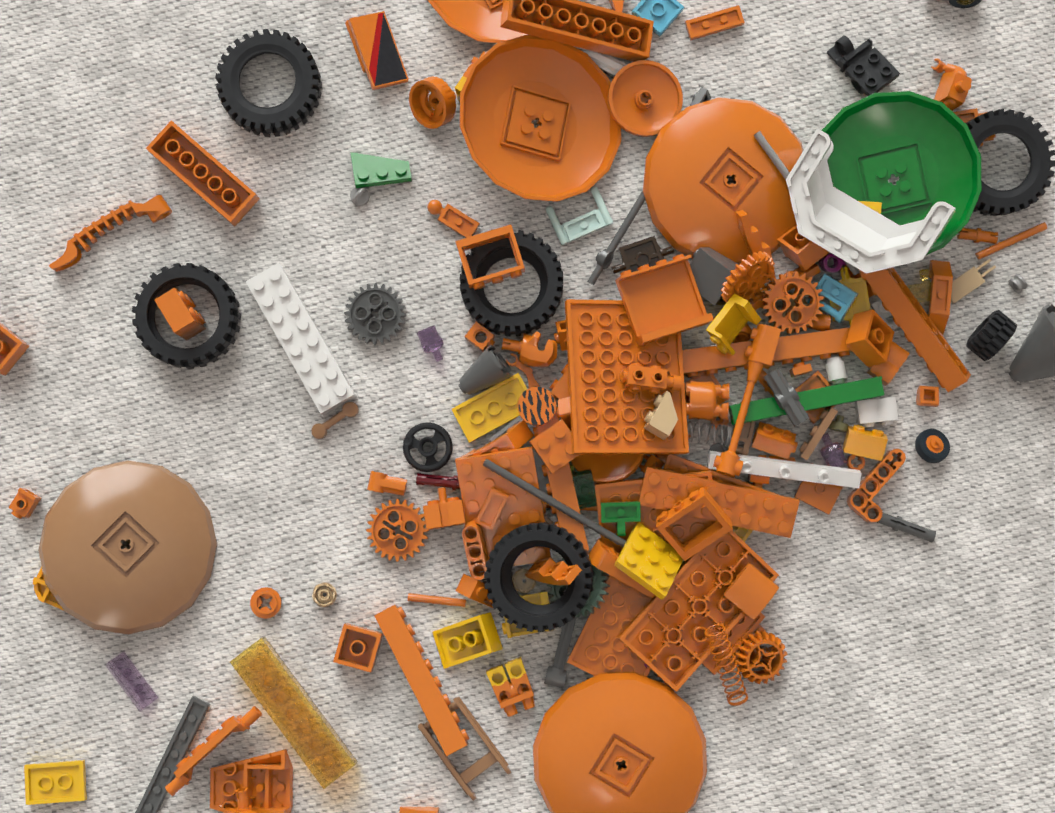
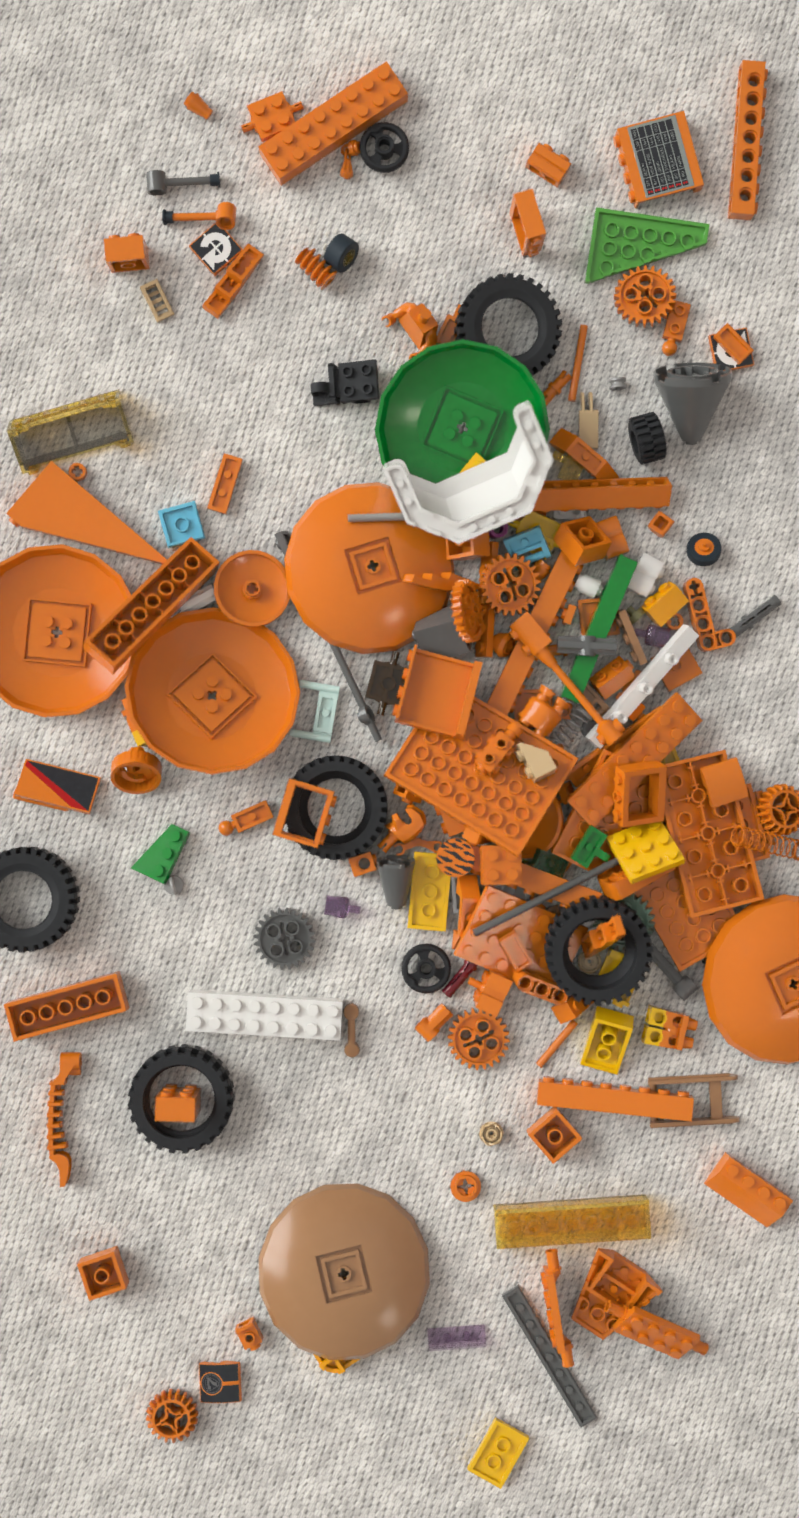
camera: 55 degrees left, 5 degrees up
(730, 322) = (493, 649): yellow panel -> none

